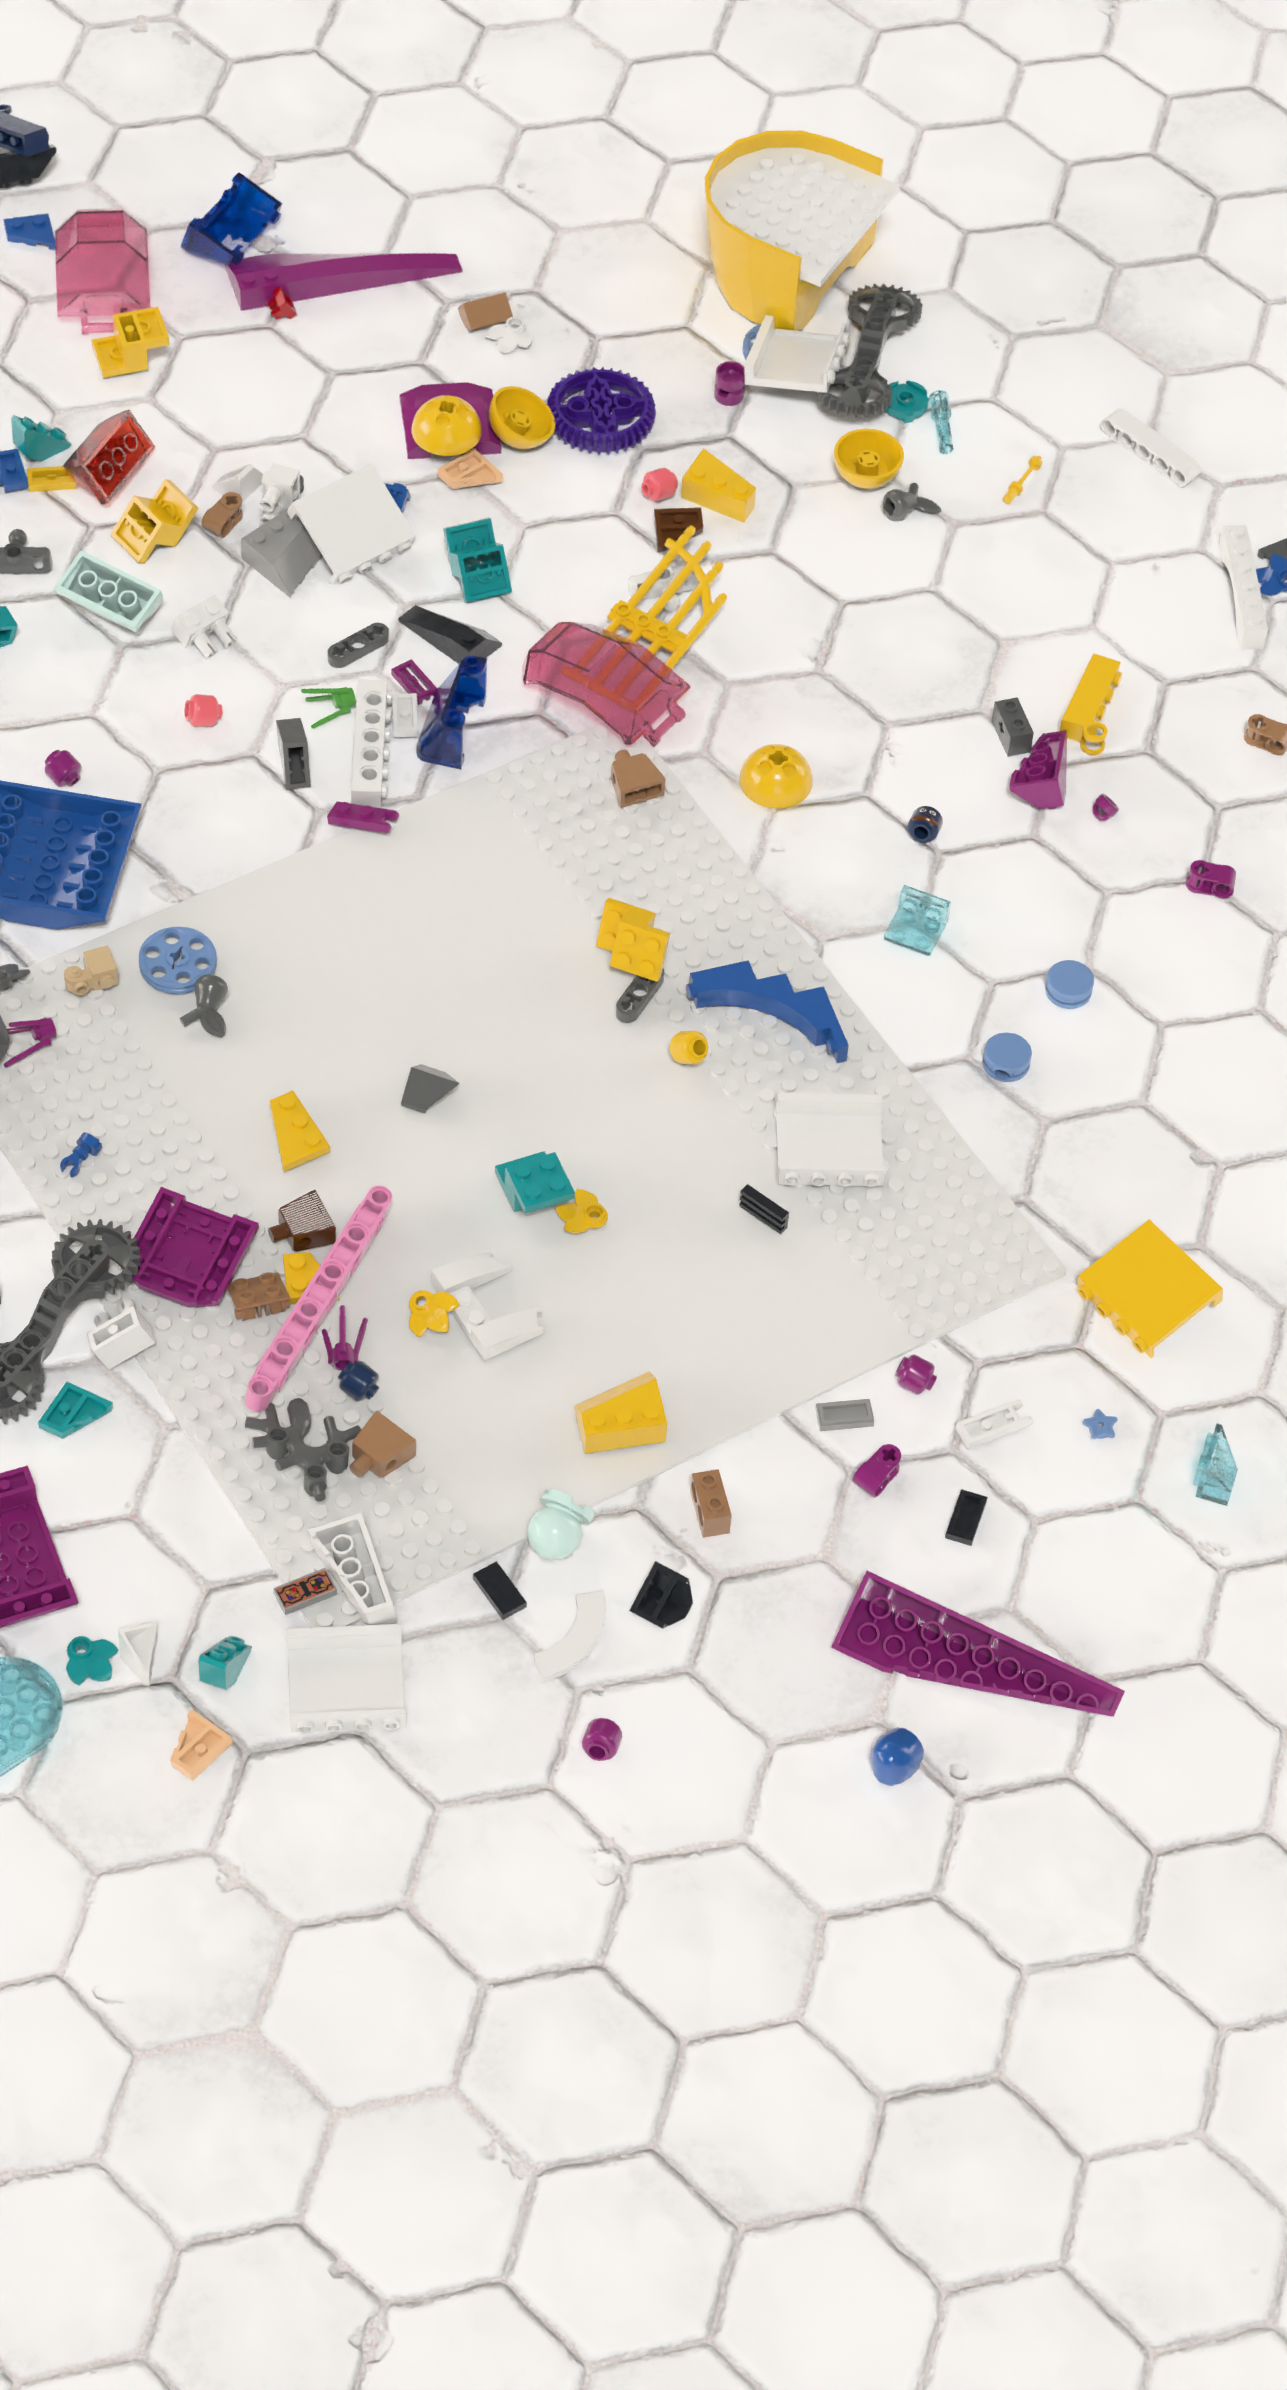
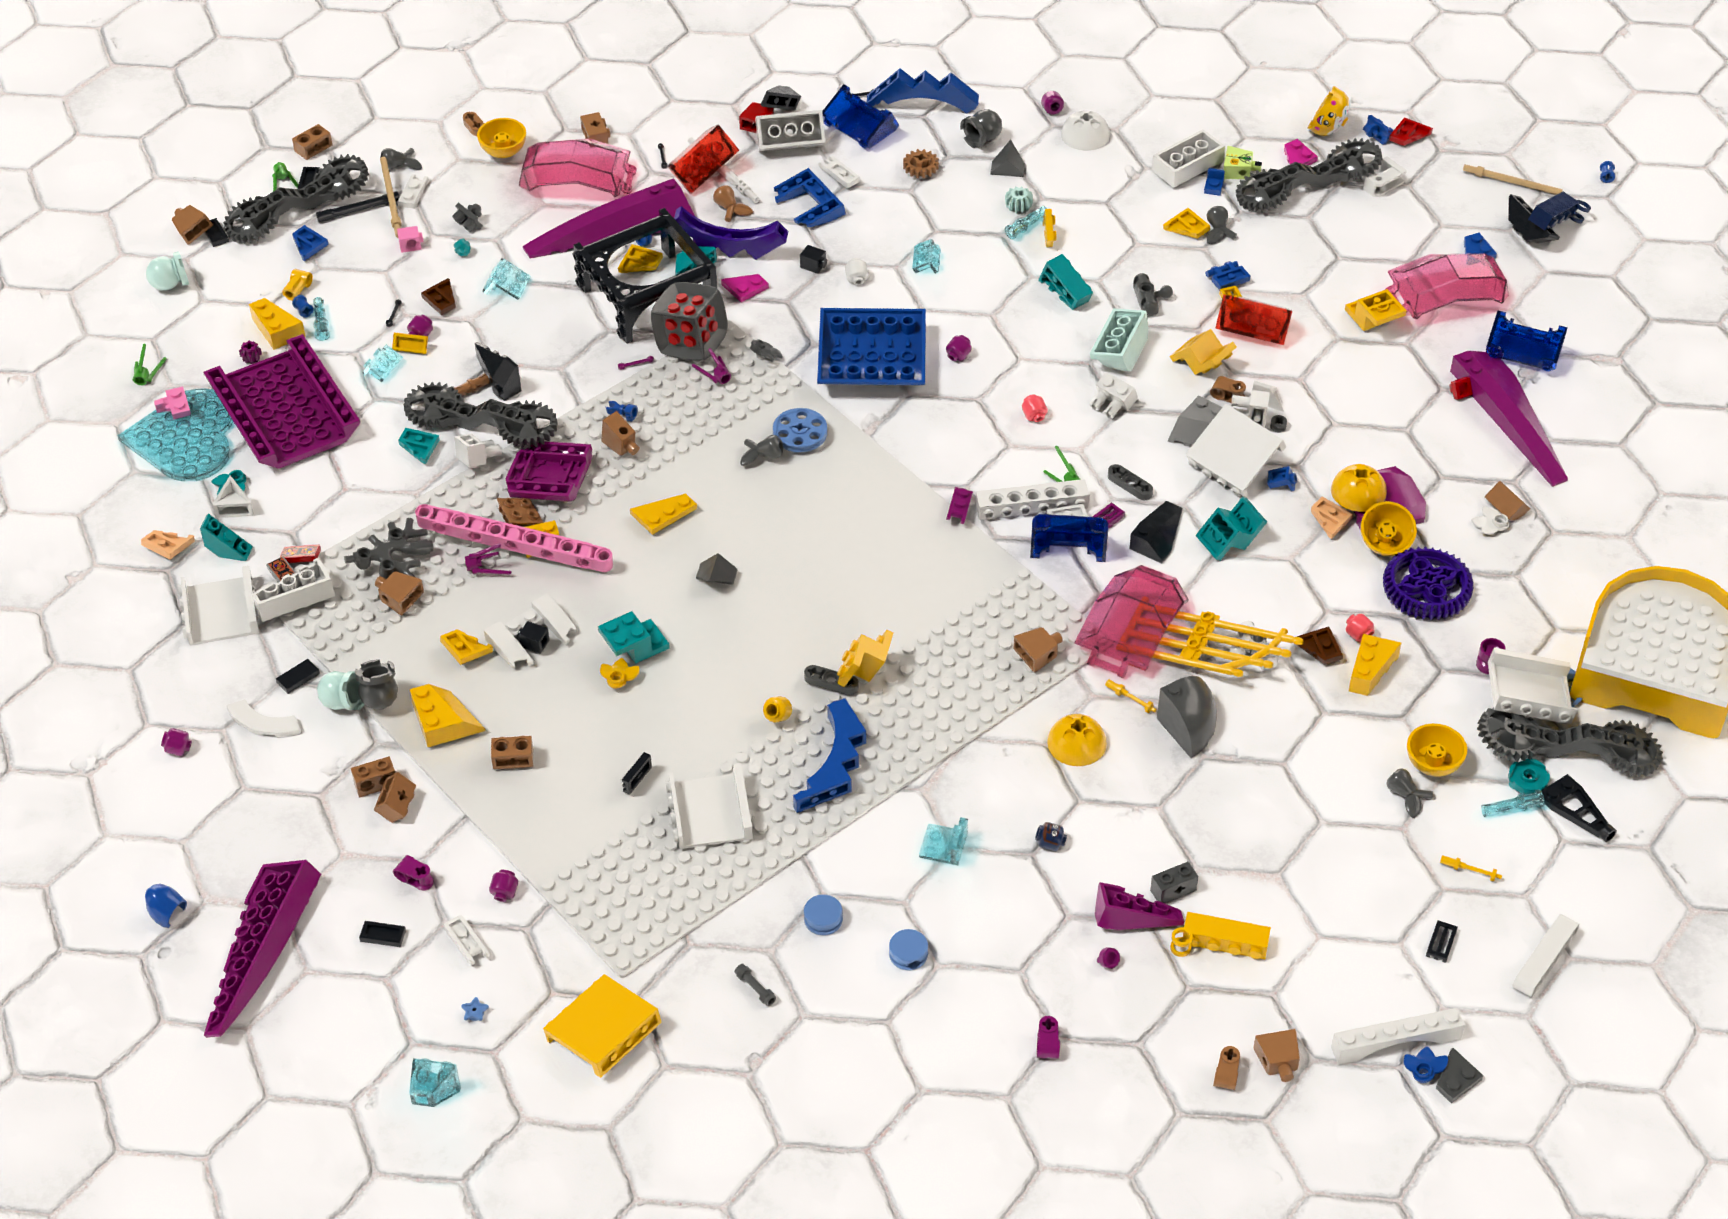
camera: 85 degrees right, 5 degrees down
(37, 439) = (1259, 281): teal slope -> none
(98, 972) = (776, 391): tan brick -> none
(144, 1156) = (619, 435): none -> medium nougat torso
(265, 1571) = (301, 553): none -> tile
(293, 753) = (1008, 458): dark grey slope -> none
(304, 1224) = (582, 524): reddish brown torso -> none
(358, 1381) = (452, 572): dark blue head -> none
(433, 1313) = (520, 600): yellow plate -> none
(500, 1380) = (464, 647): none -> yellow wing
(503, 1296) = (533, 637): none -> black brick
(569, 1468) = (377, 684): none -> dark grey tile
(663, 1597) = (293, 761): black slope -> none
(702, 1339) = (512, 752): none -> medium nougat brick
(706, 721) = (1120, 689): none -> yellow piece
(755, 1479) = (395, 797): none -> medium nougat brick
(769, 661) = (1188, 713): none -> dark grey brick
(844, 1415) = (467, 850): light grey tile -> none
(927, 374) = (1566, 788): none -> black plate
(1114, 527) = (1437, 954): none -> black tile
(1117, 1129) = (744, 973): none -> dark grey bar
(1253, 687) = (1278, 1053): none -> medium nougat torso

